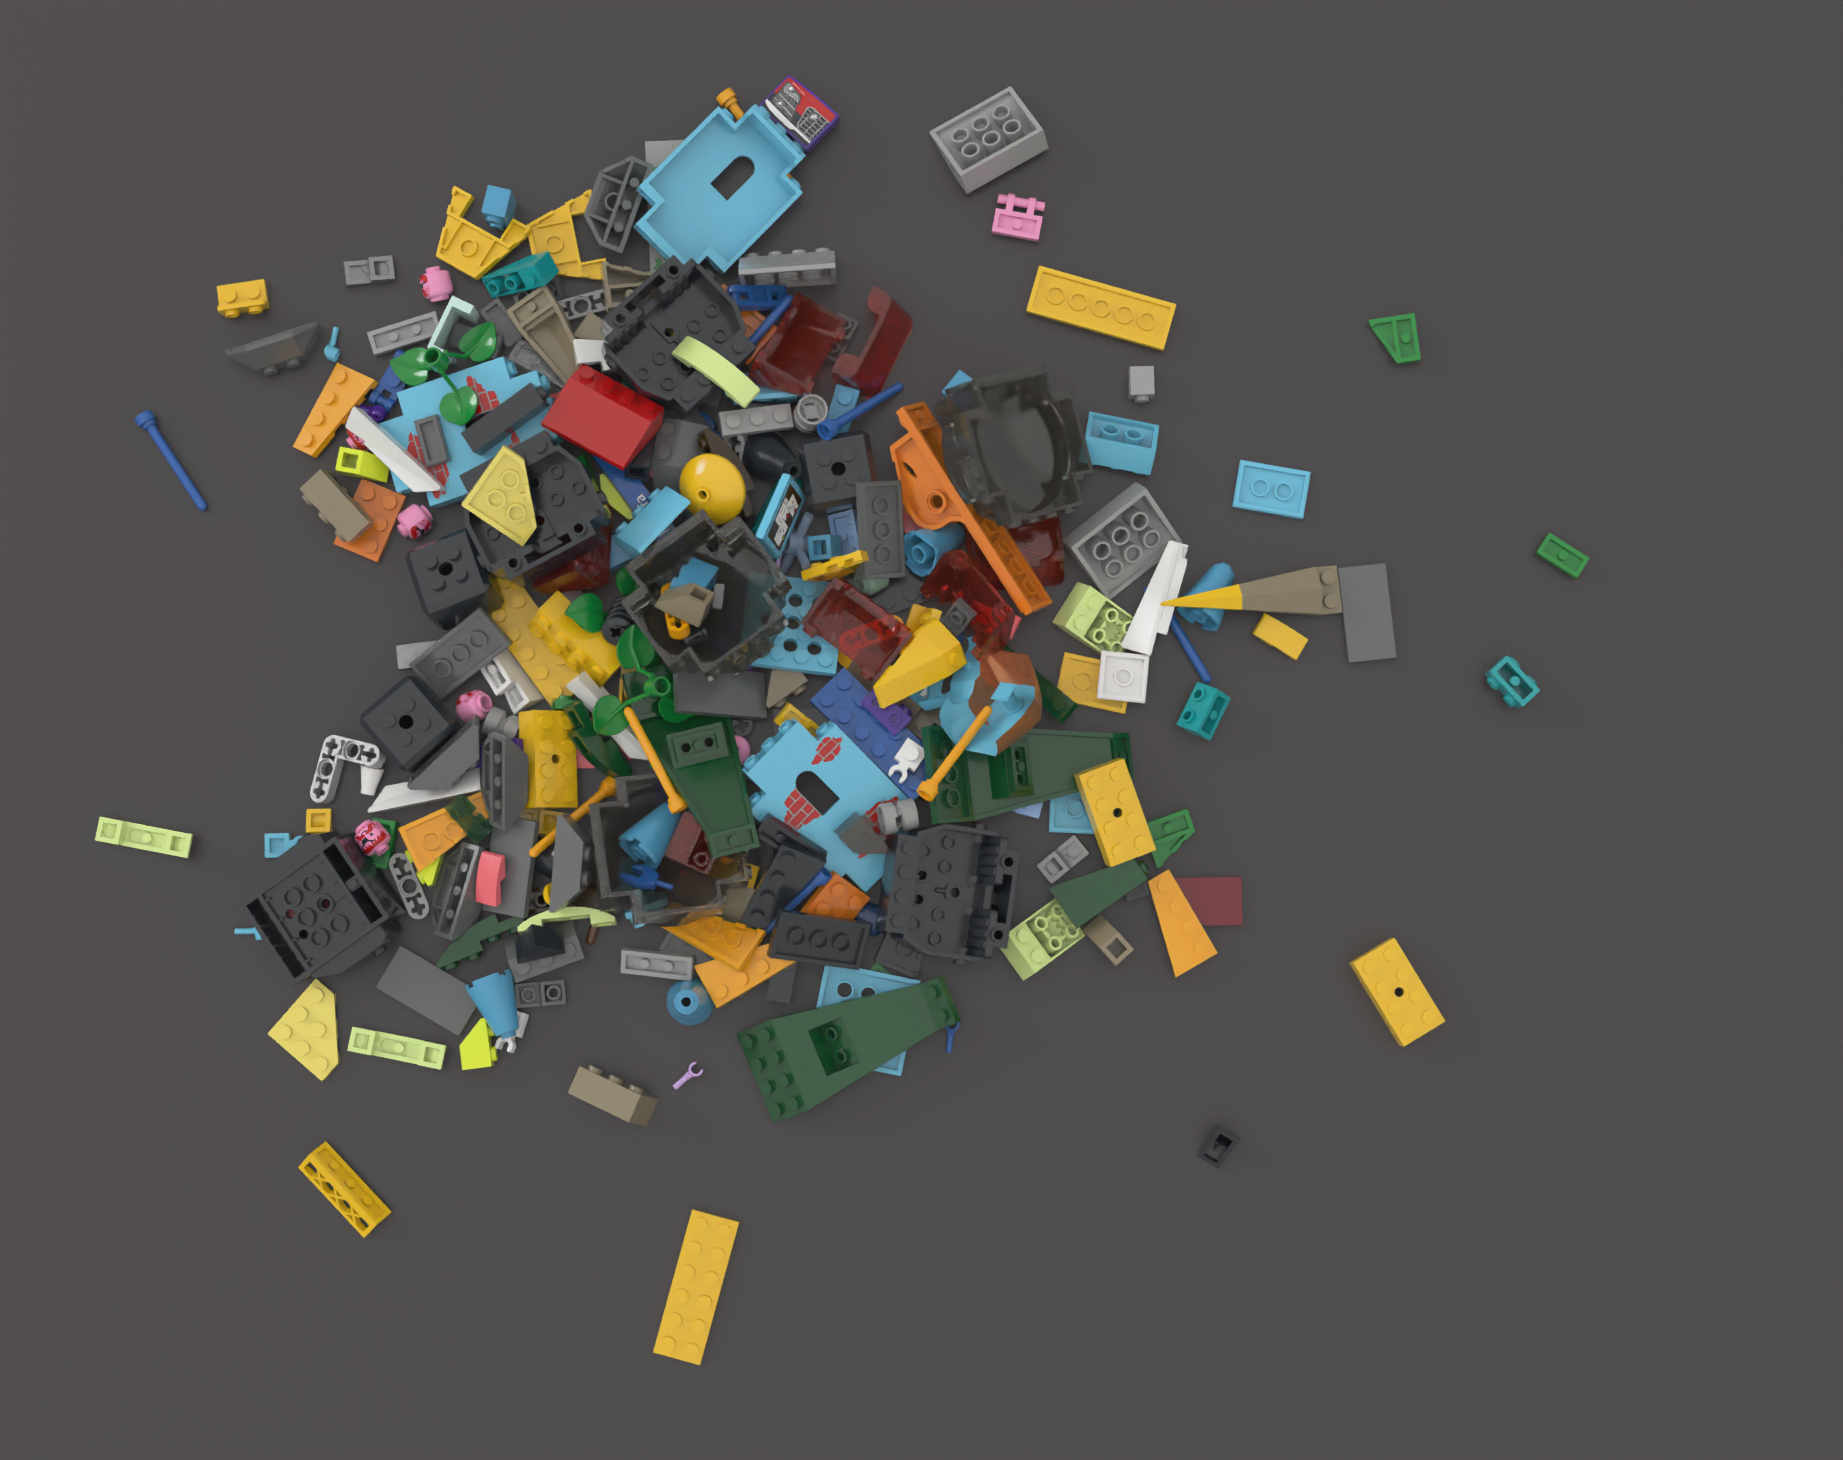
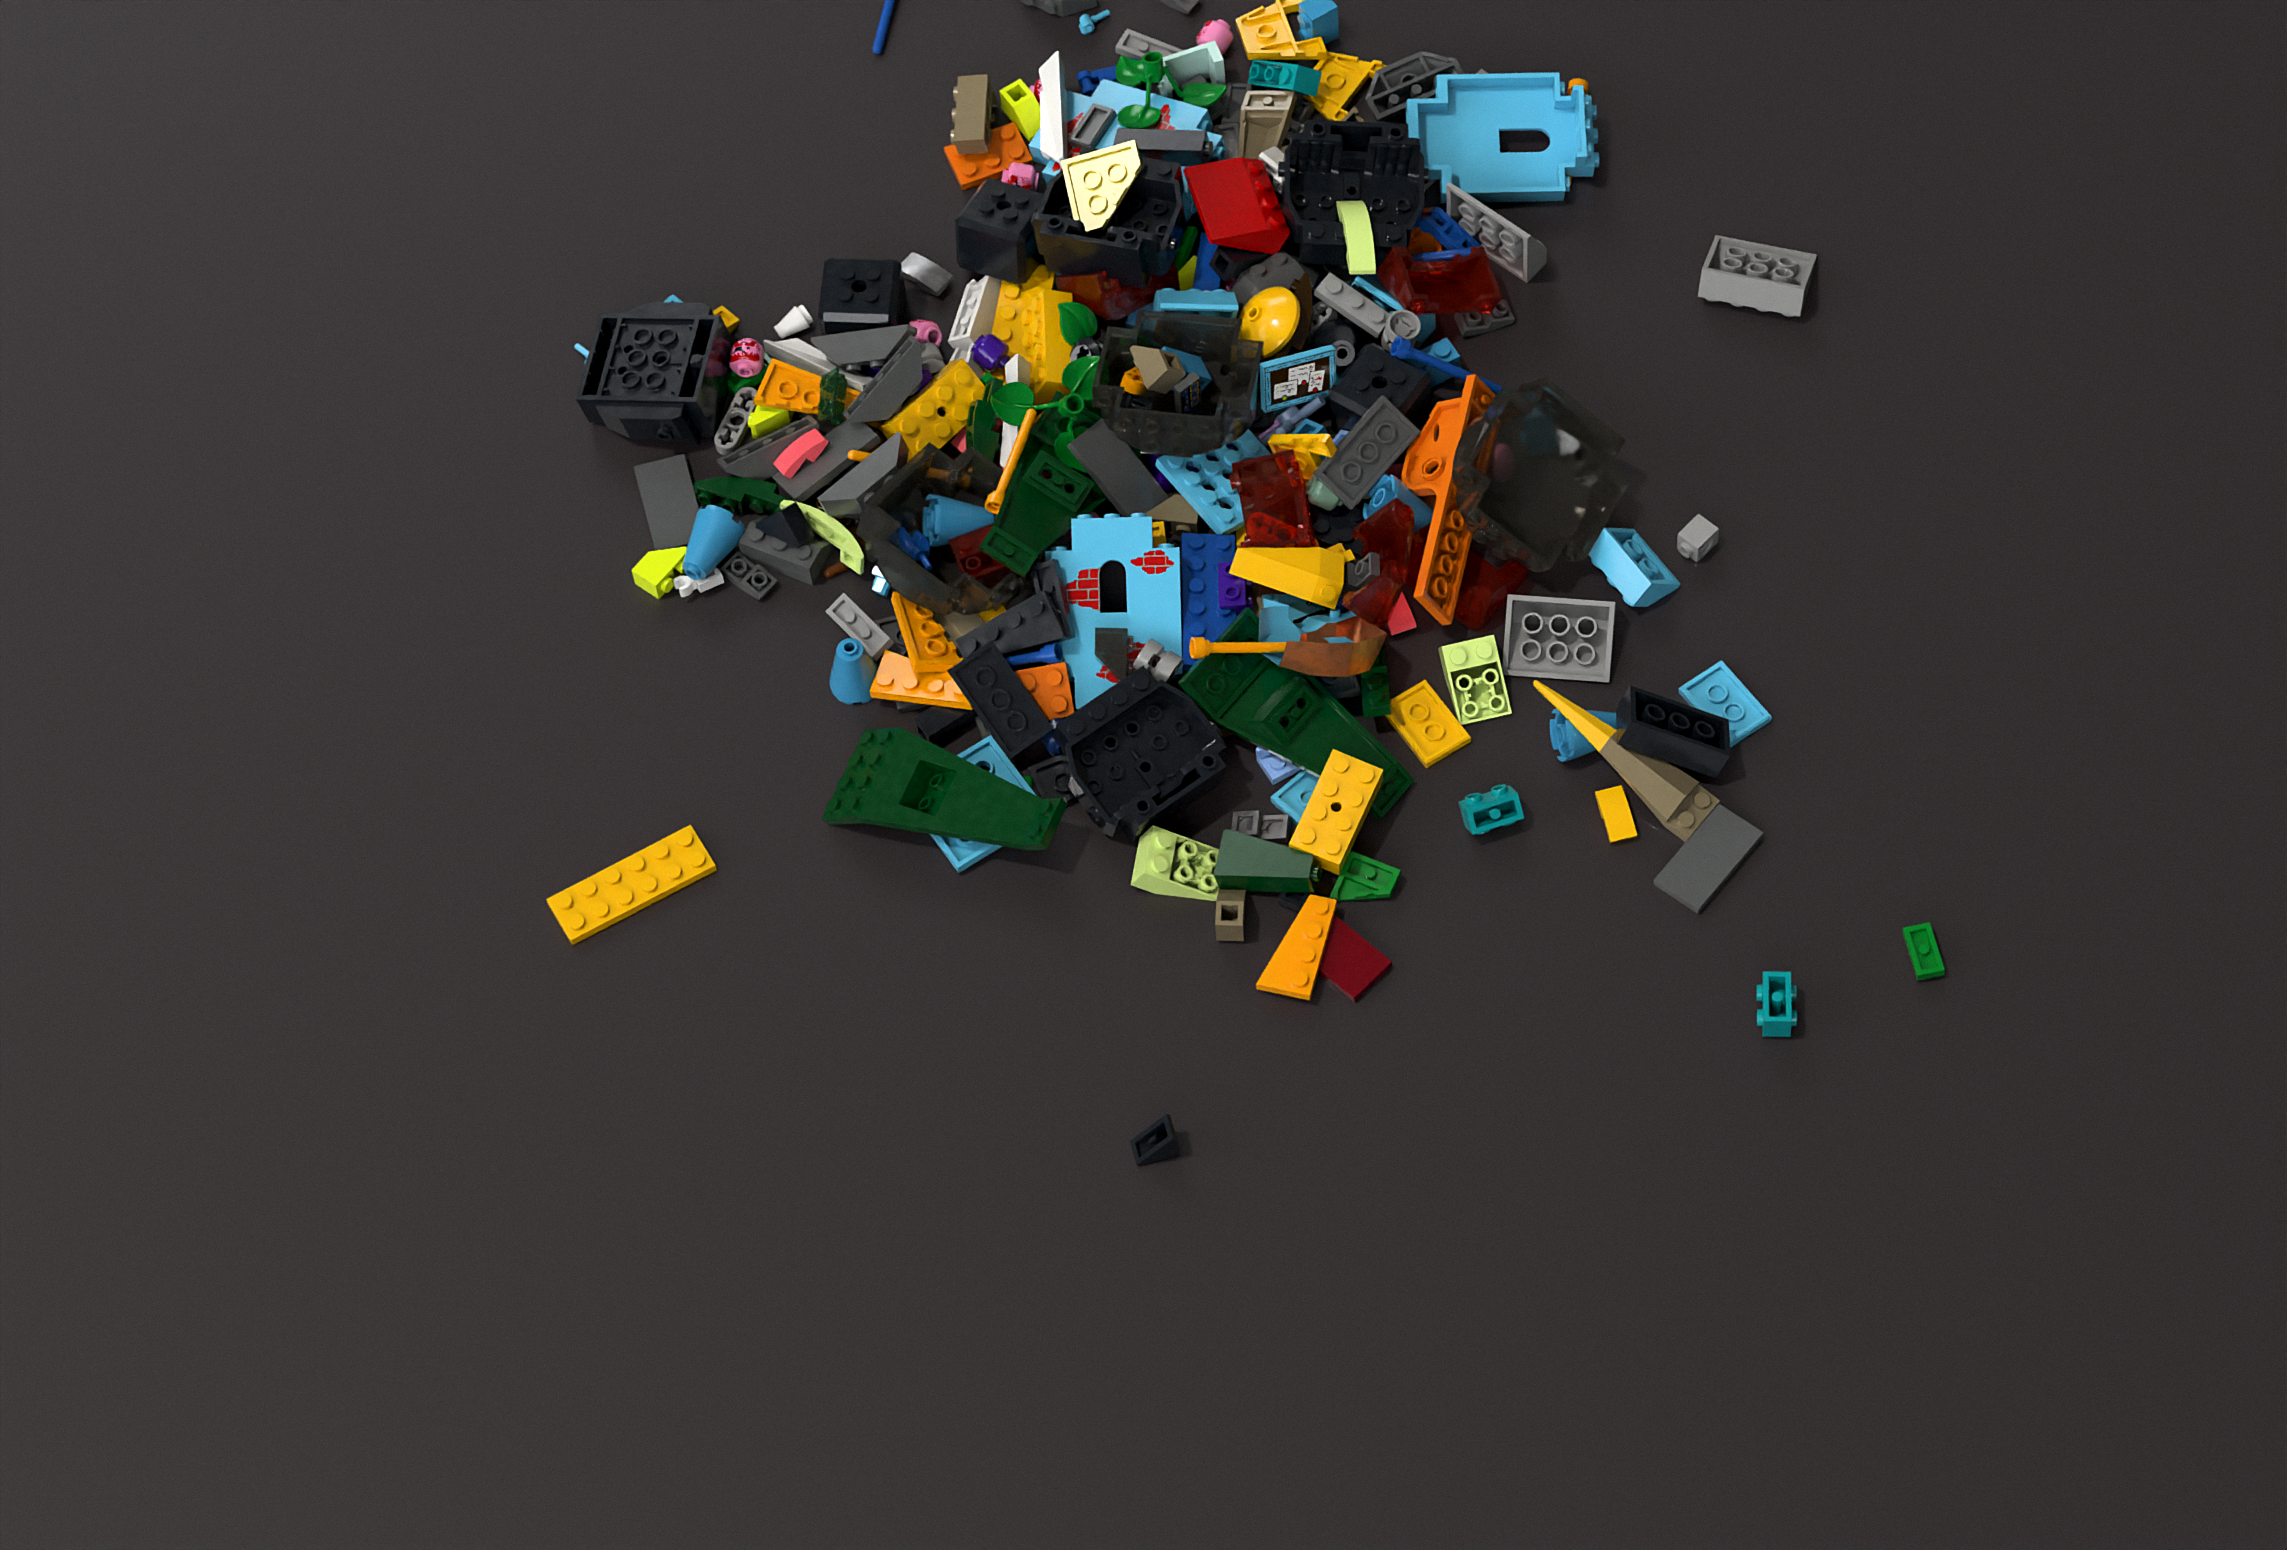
camera: 55 degrees right, 25 degrees down
(144, 837) = (582, 225): yellowish green slope -> none
(311, 1030) = (553, 457): light yellow plate -> none
(341, 393) = (1073, 52): light orange wing -> none
(342, 753) = (788, 283): light grey beam -> none
(346, 1186) = (455, 583): yellow fence -> none
(376, 412) = (1073, 85): dark purple arm -> none
(397, 1047) = (599, 518): yellowish green slope -> none
(460, 653) = (953, 287): dark grey tile -> none
(538, 680) = (990, 352): none -> dark purple head
(612, 1095) = (723, 690): dark tan wedge -> none
(687, 1076) = (803, 724): lavender hand -> none
(800, 113) = (1623, 143): slope -> none
(881, 351) = (1509, 339): clear red windscreen -> none
(909, 758) = (1210, 627): white plate -> none
(950, 1034) = (1033, 875): blue hand -> none
(1018, 224) = (1717, 351): bright pink plate -> none
(1101, 308) = (1722, 462): yellow plate -> none
(1123, 677) = (1451, 730): white plate -> none
(1164, 586) = (1531, 705): white wedge -> none
(1189, 649) = (1535, 742): blue piece -> none
(1274, 551) = (1672, 731): none -> black brick
(1382, 972) = (1428, 1155): yellow brick -> none
(1398, 337) = (1953, 678): green wing -> none

